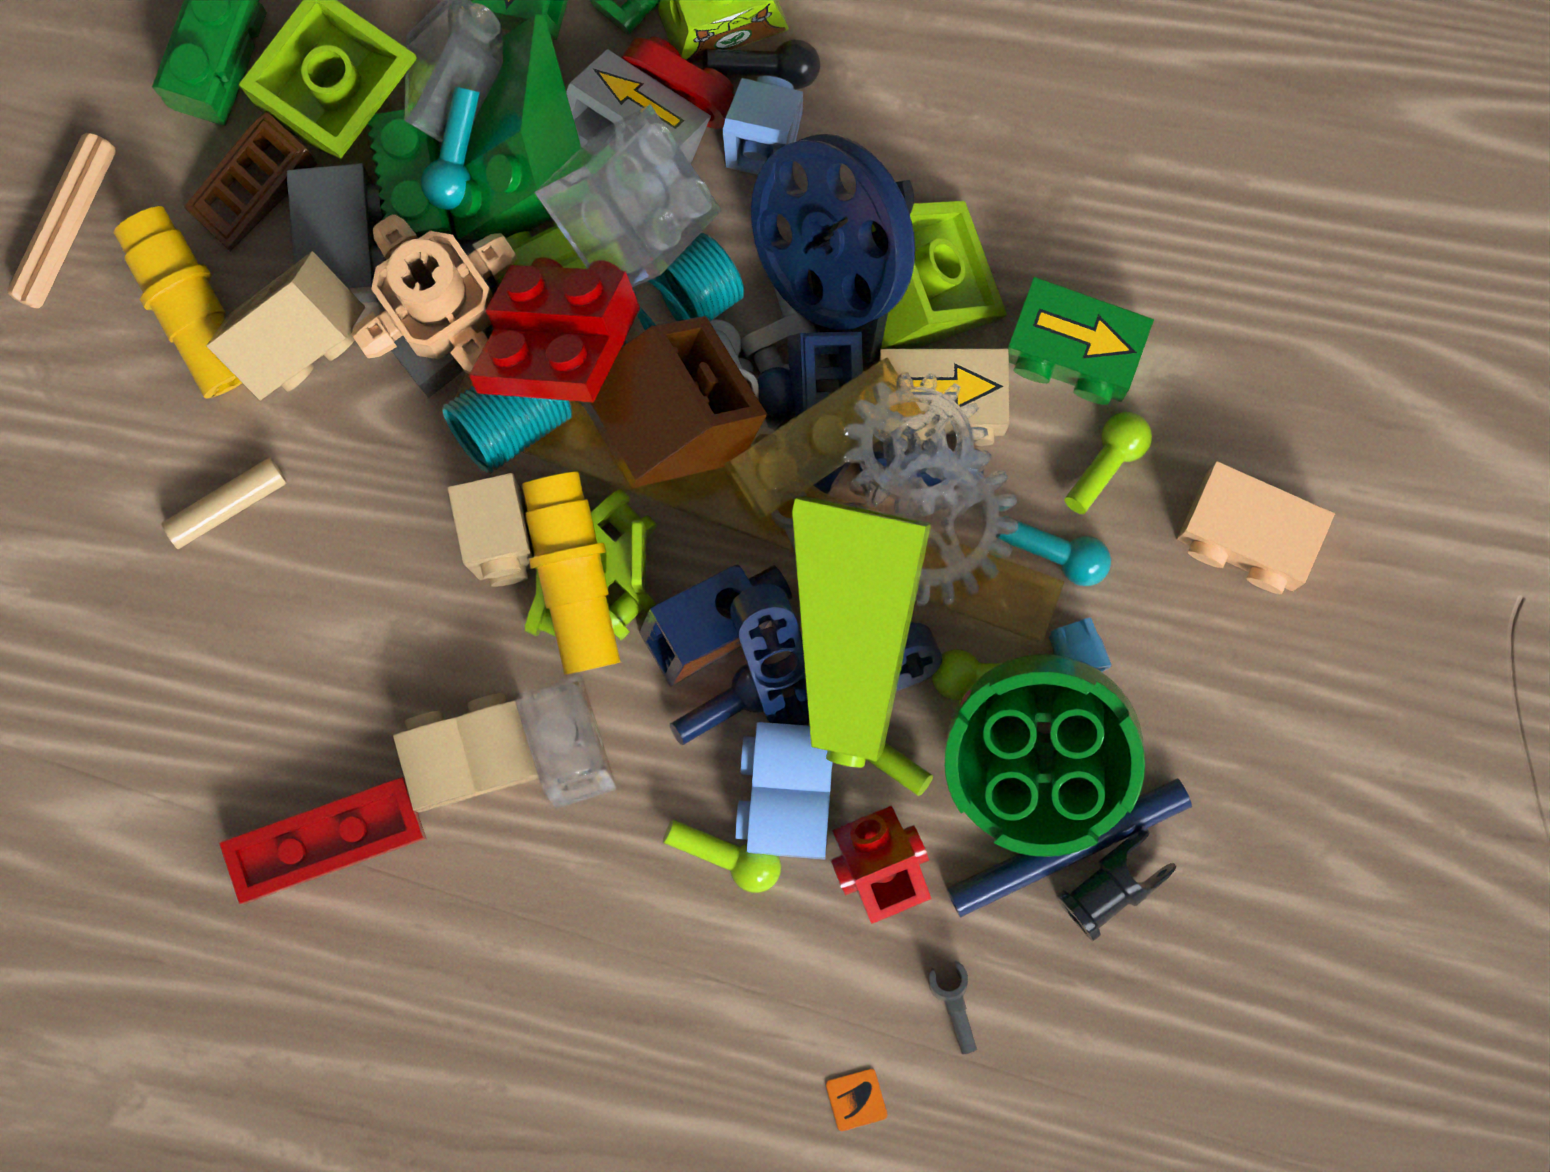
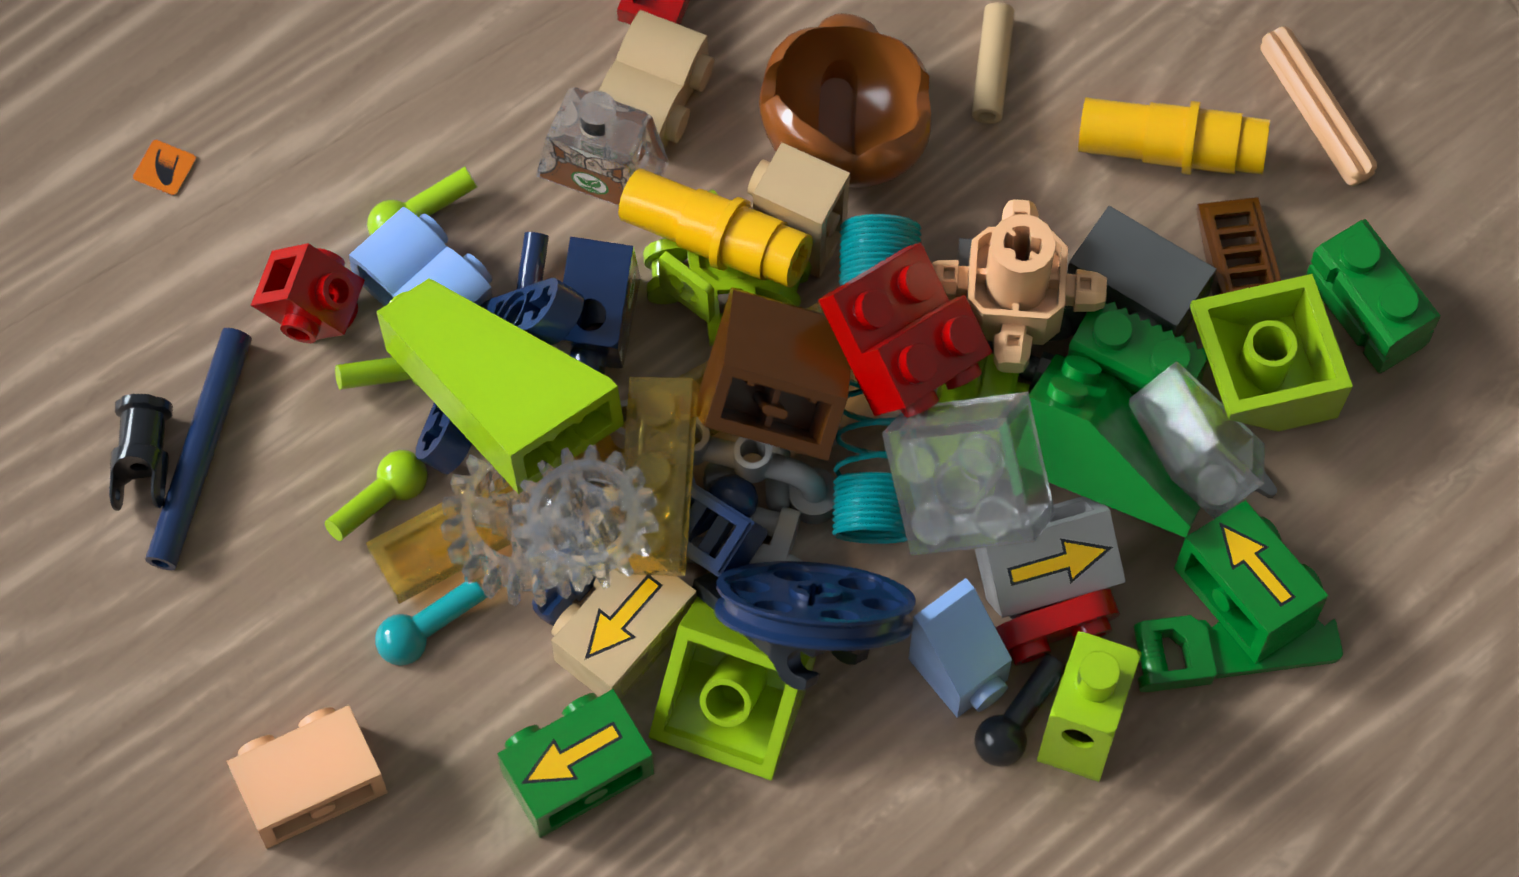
camera: 125 degrees right, 15 degrees down
(287, 328) = (1084, 176): tan brick -> none
(369, 564) = (848, 99): none -> dark orange piece
(446, 177) = (1110, 370): teal bar -> none
(956, 1008) = (167, 280): dark grey hand -> none
(1040, 788) = (277, 456): green cylinder -> none
(1082, 643) = (335, 569): dark azure hose -> none
(1124, 439) = (468, 748): lime bar -> none

